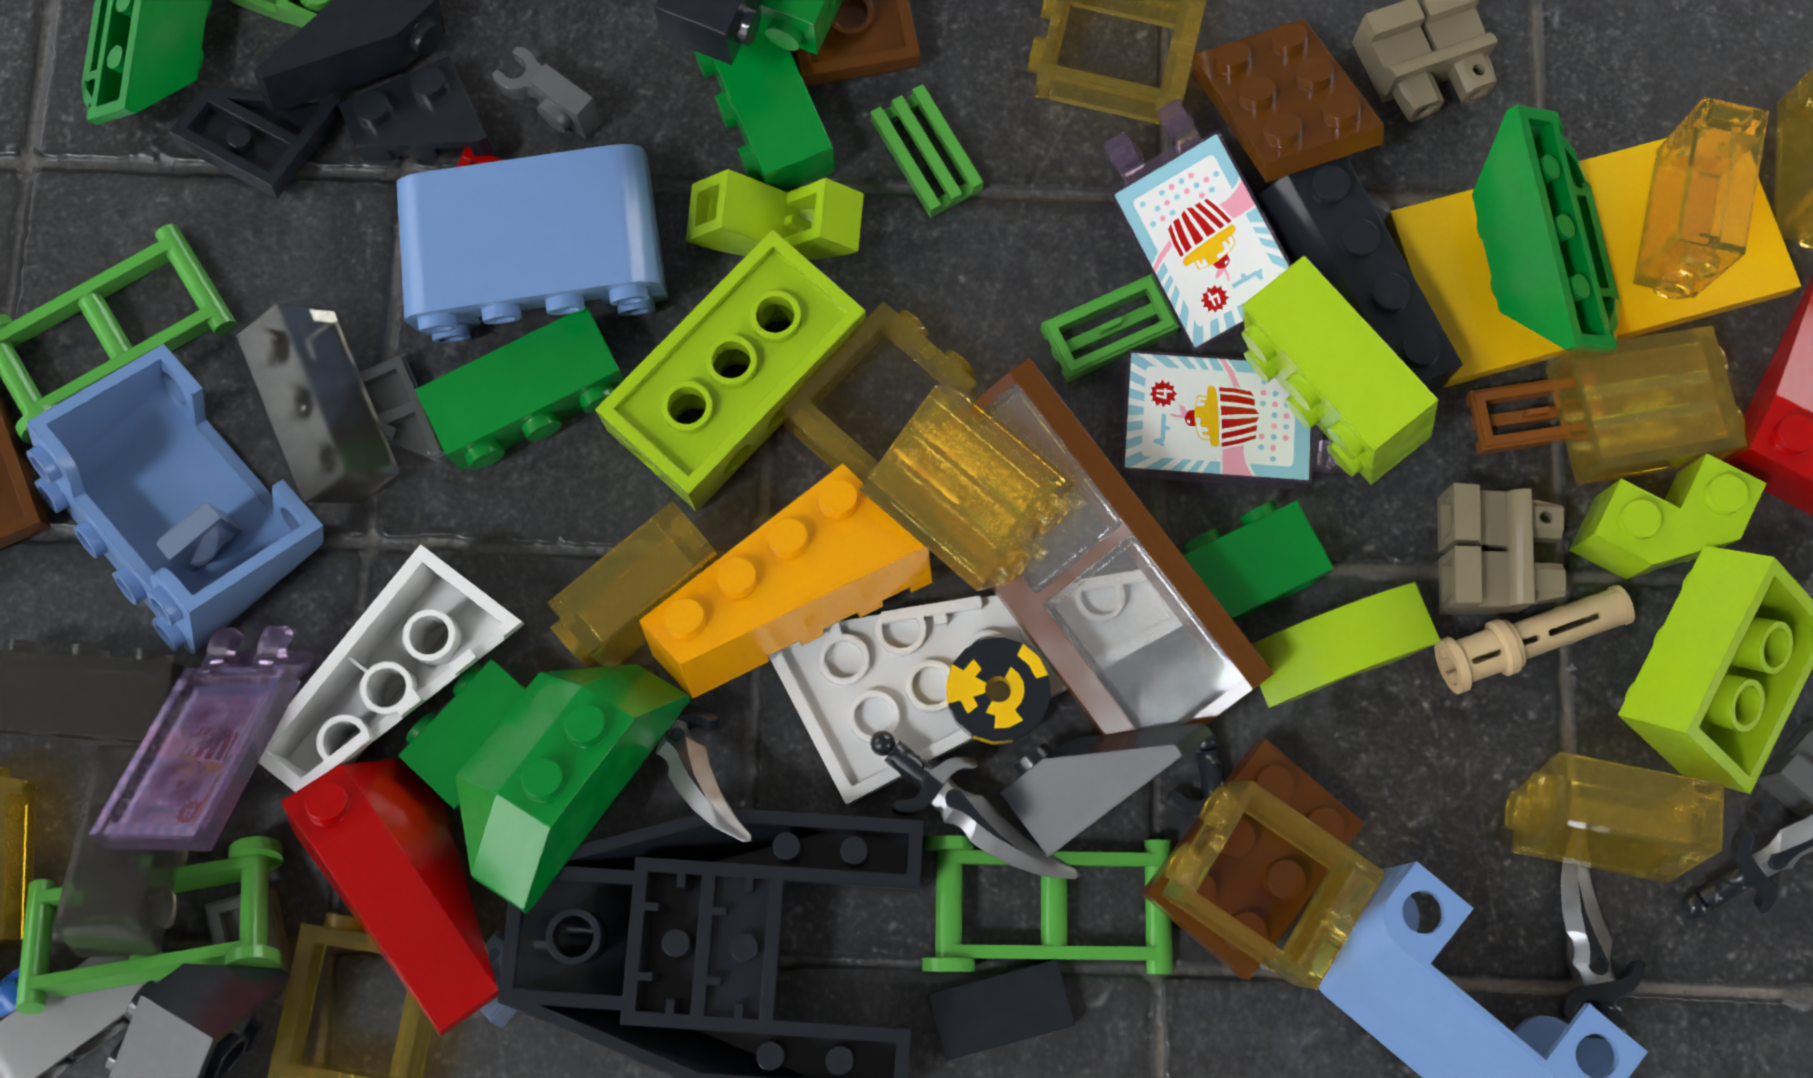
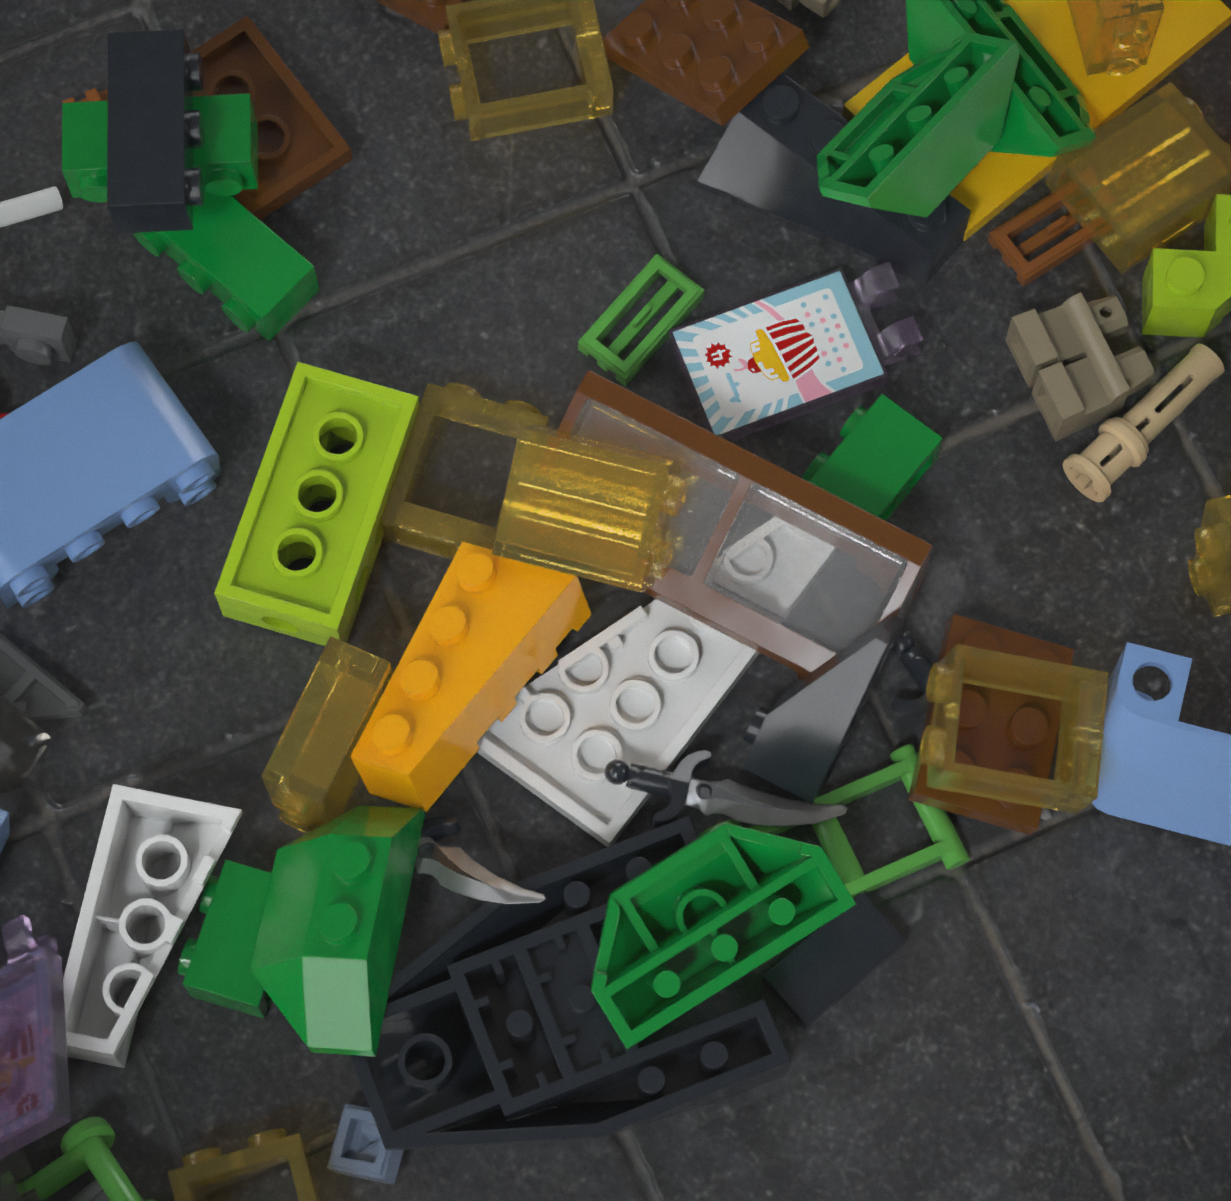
camera: 25 degrees left, 5 degrees down
(398, 871) = (239, 1091): red wedge -> none
(520, 390) = (130, 612): green brick -> none
(737, 212) = (256, 363): lime brick -> none
(888, 937) = (707, 922): none -> green wedge
(903, 110) = (357, 205): bright green tile -> none
(1002, 661) = (691, 652): black piece -> none
(1197, 227) = (685, 196): tile -> none
(1337, 372) = (864, 265): lime brick -> none
(1345, 643) = (983, 497): lime brick -> none
(1453, 269) = (923, 129): none -> green wedge

